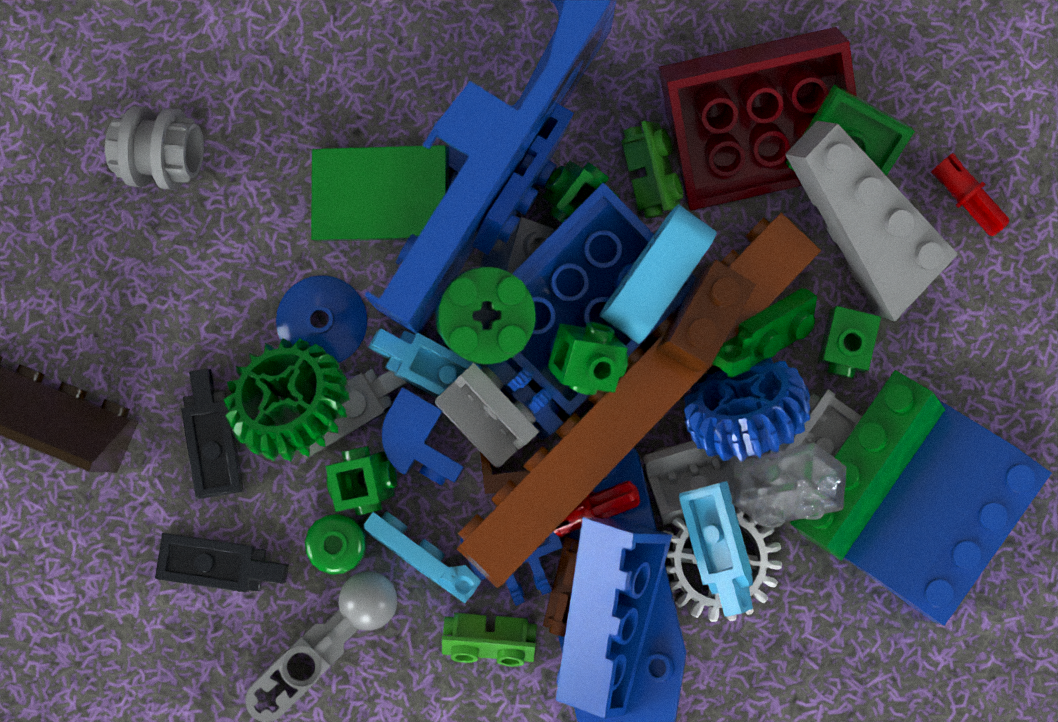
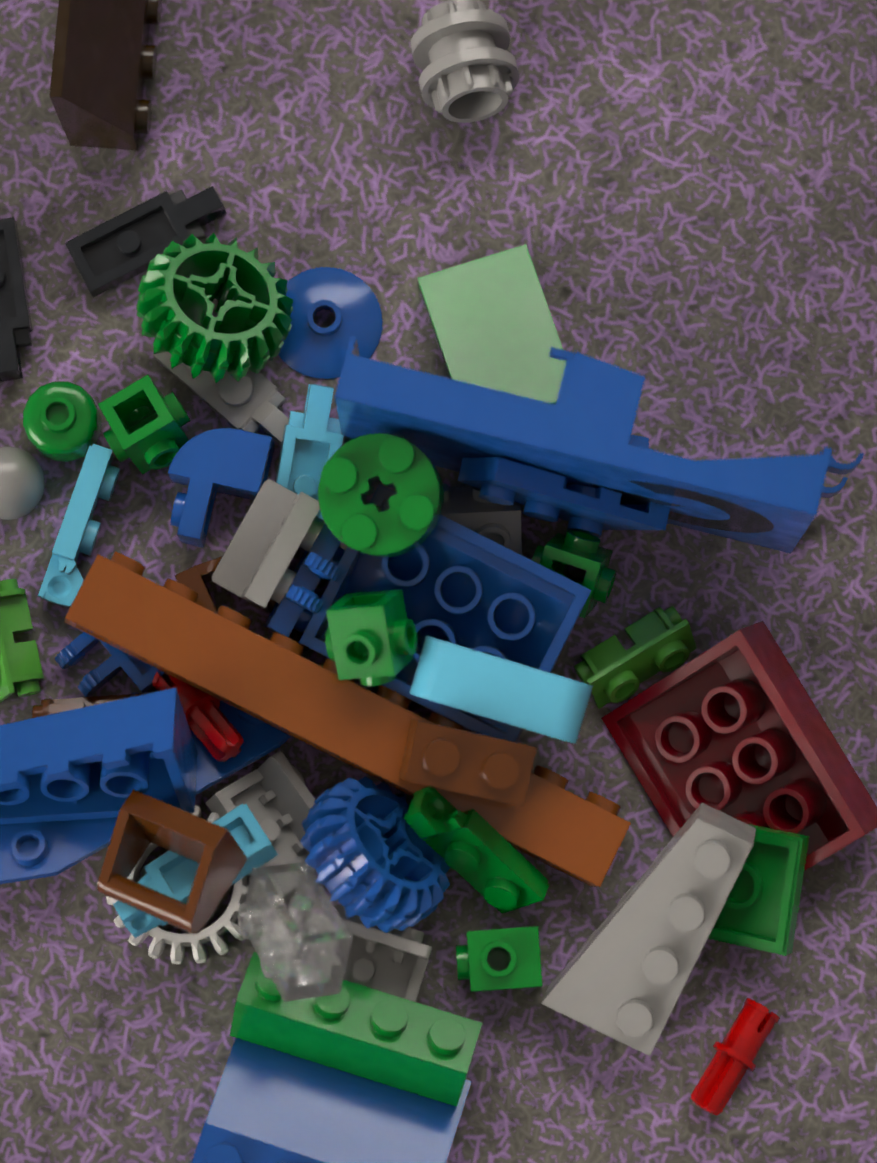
camera: 75 degrees right, 5 degrees down
(670, 570) = (149, 821): none -> reddish brown tile

